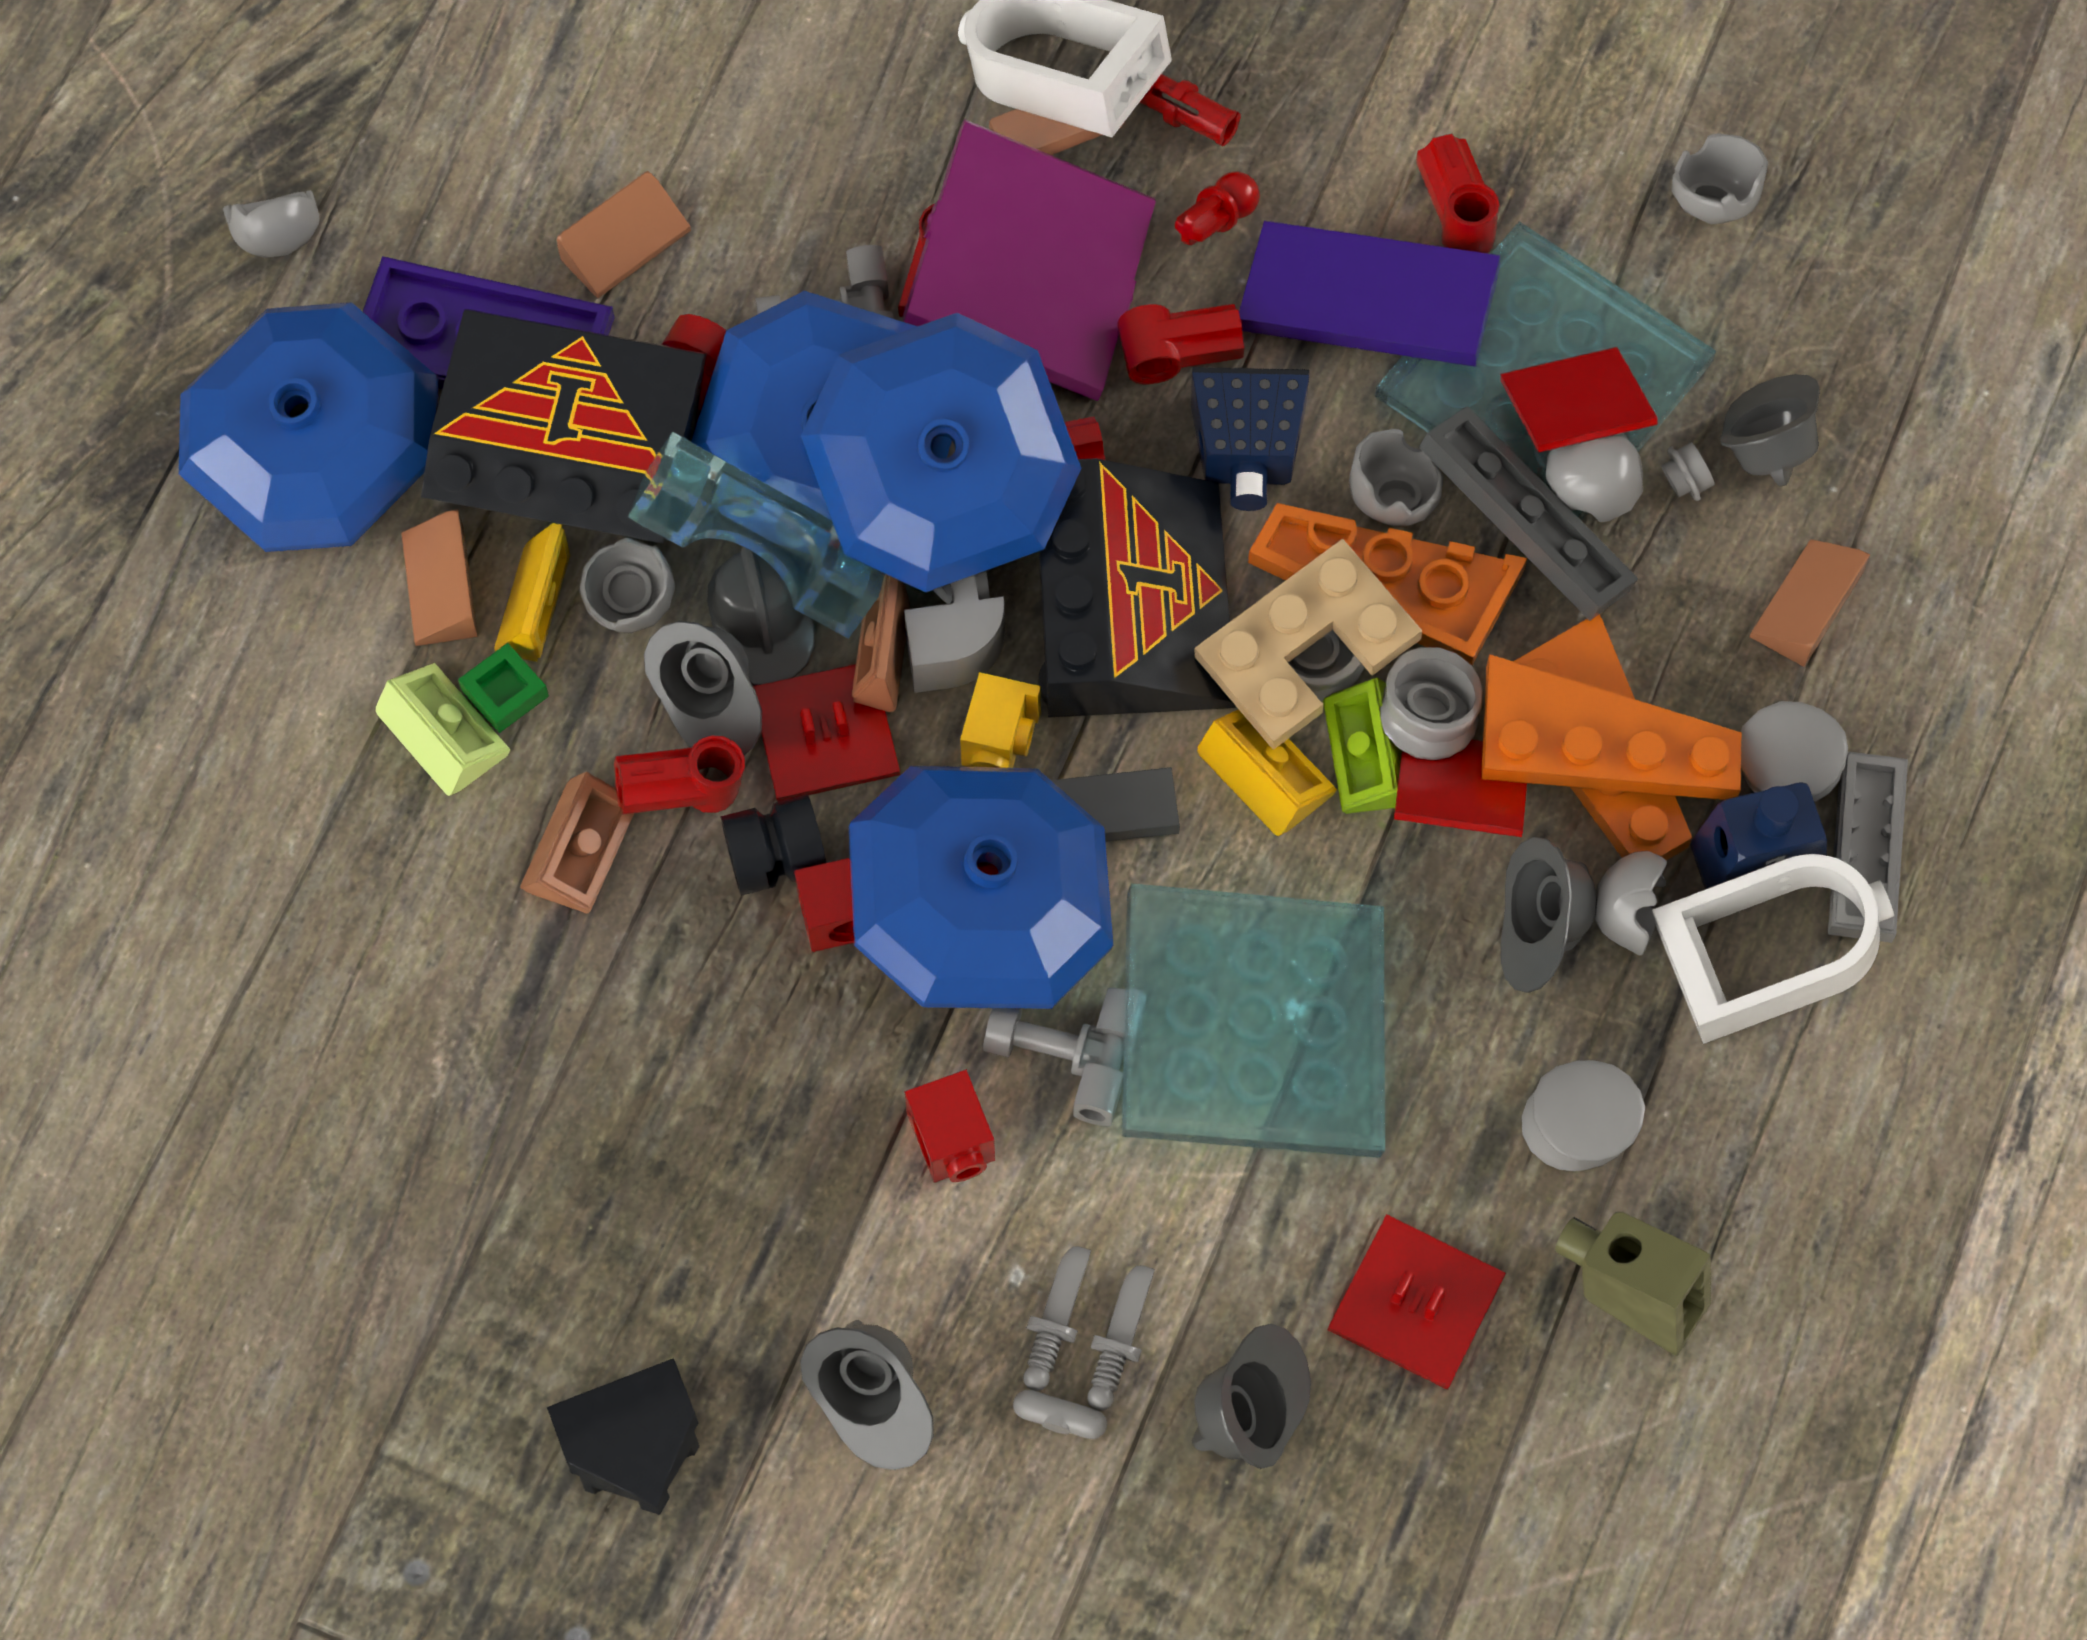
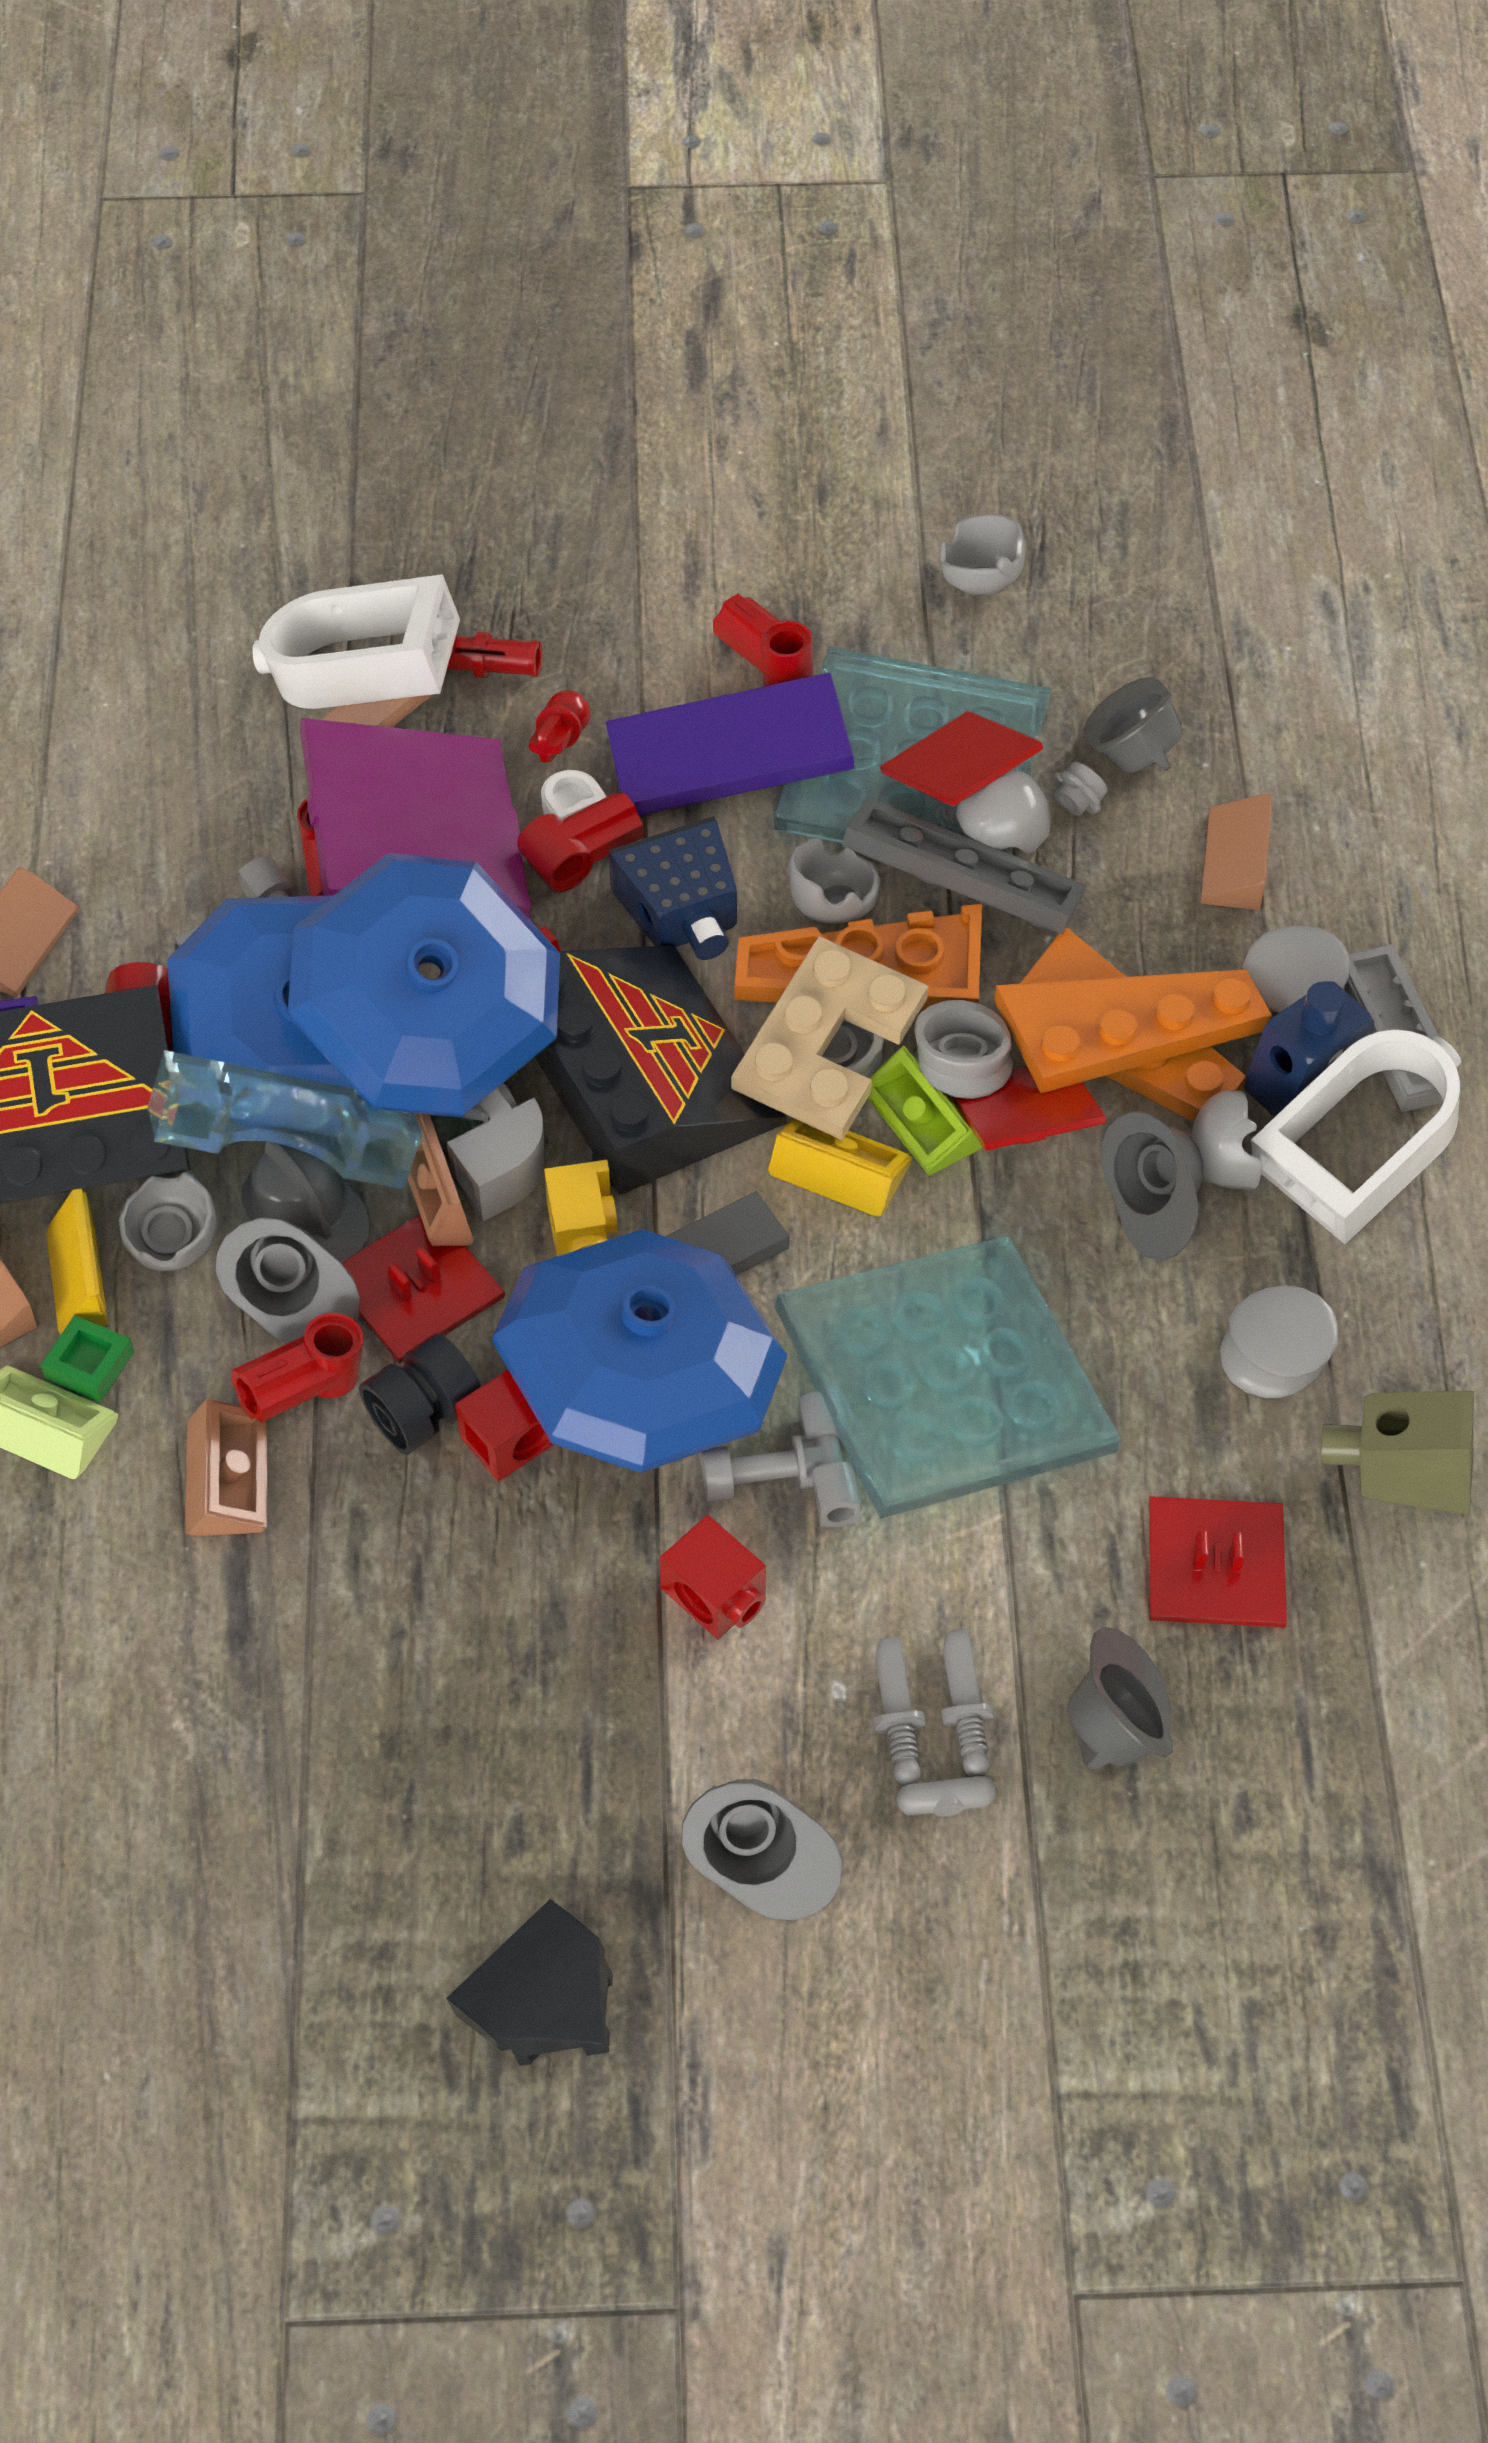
camera: 25 degrees left, 10 degrees down
(1194, 286) = (569, 793): none -> white tile

